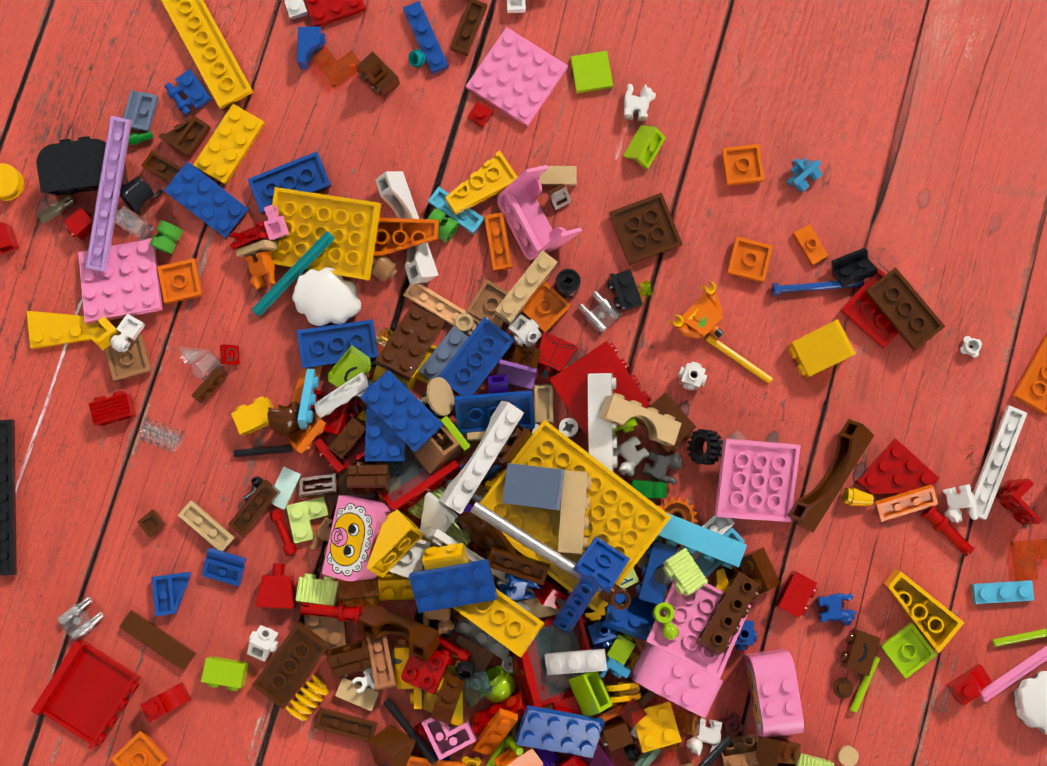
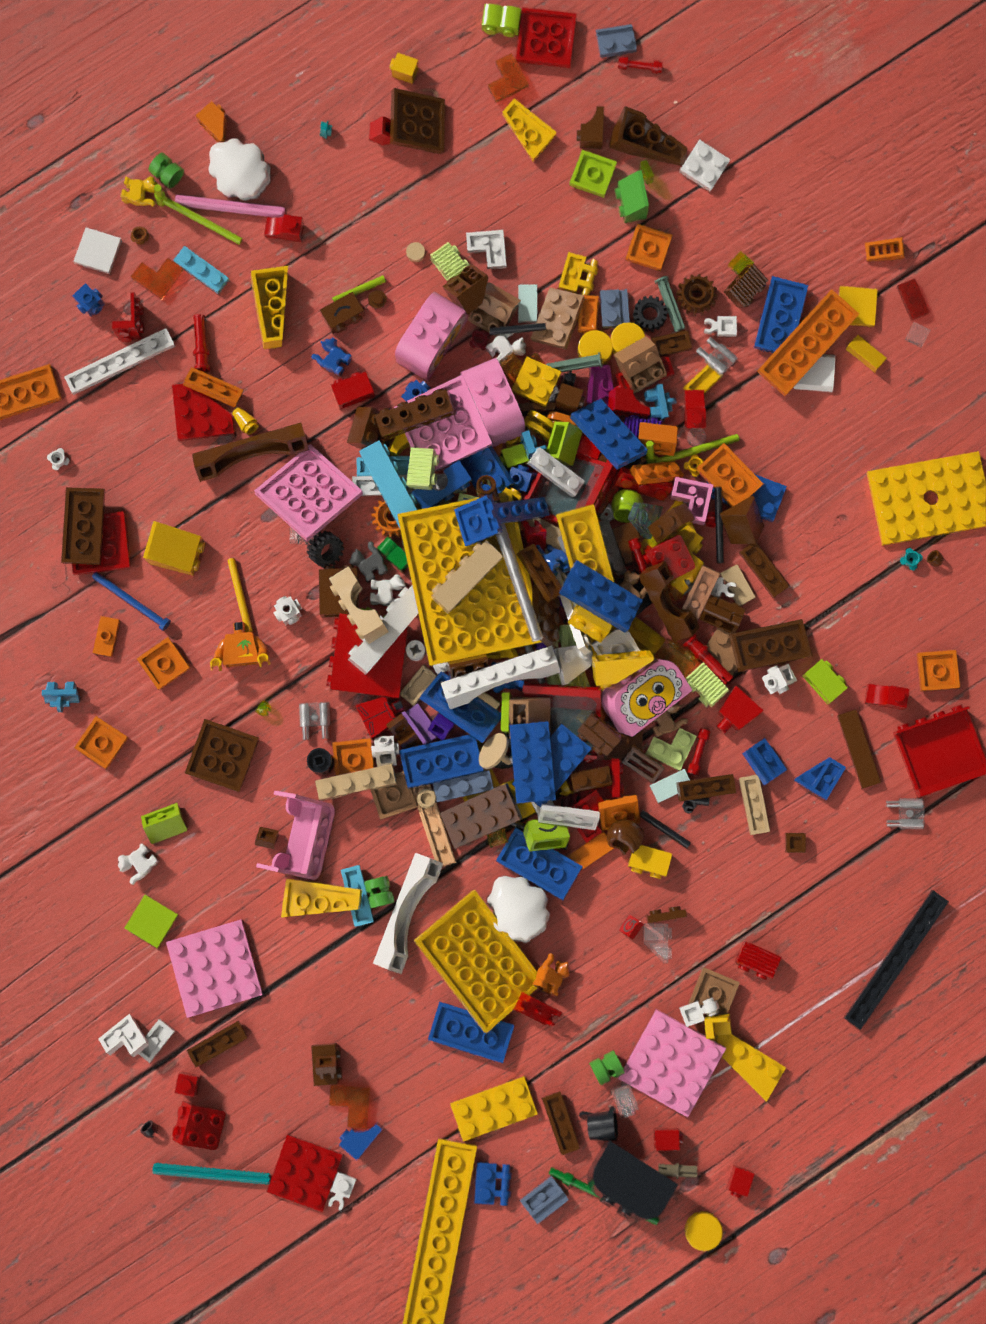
camera: 140 degrees left, 0 degrees up
(108, 193) = (624, 1136): lavender tile -> none
(161, 437) = (735, 906): clear piece -> none
(180, 281) = (623, 1022): orange plate -> none
(186, 136) = (523, 1145): reddish brown wing -> none
(206, 200) = (549, 1073): blue plate -> none
(252, 249) = (541, 995): tan tile -> none
(276, 224) = (511, 998): bright pink plate -> none
(293, 273) = (528, 948): teal axle -> none
(308, 399) = (596, 834): medium azure plate -> none
(308, 699) = (777, 610): yellow piece -> none
(383, 267) = (451, 895): medium nougat head -> none
(403, 233) = (414, 906): orange wedge -> none
(416, 58) = (282, 1052): teal plate -> none
(425, 37) = (259, 1066): blue plate -> none
(464, 670) = (642, 533): black plate -> none
(480, 114) = (270, 961): red plate -> none
(498, 242) = (345, 841): orange plate -> none
(533, 486) = (480, 619): sand blue tile -> none
(559, 175) = (251, 856): tan tile -> none
(625, 290) = (280, 720): black bracket -> none
(632, 712) = (545, 403): clear red tile -> none
(669, 630) = (469, 436): lime plate -> none
(853, 267) = (91, 590): black bracket -> none
(908, 650) = (307, 286): lime plate -> none
(956, 501) = (174, 357): white animal -> none

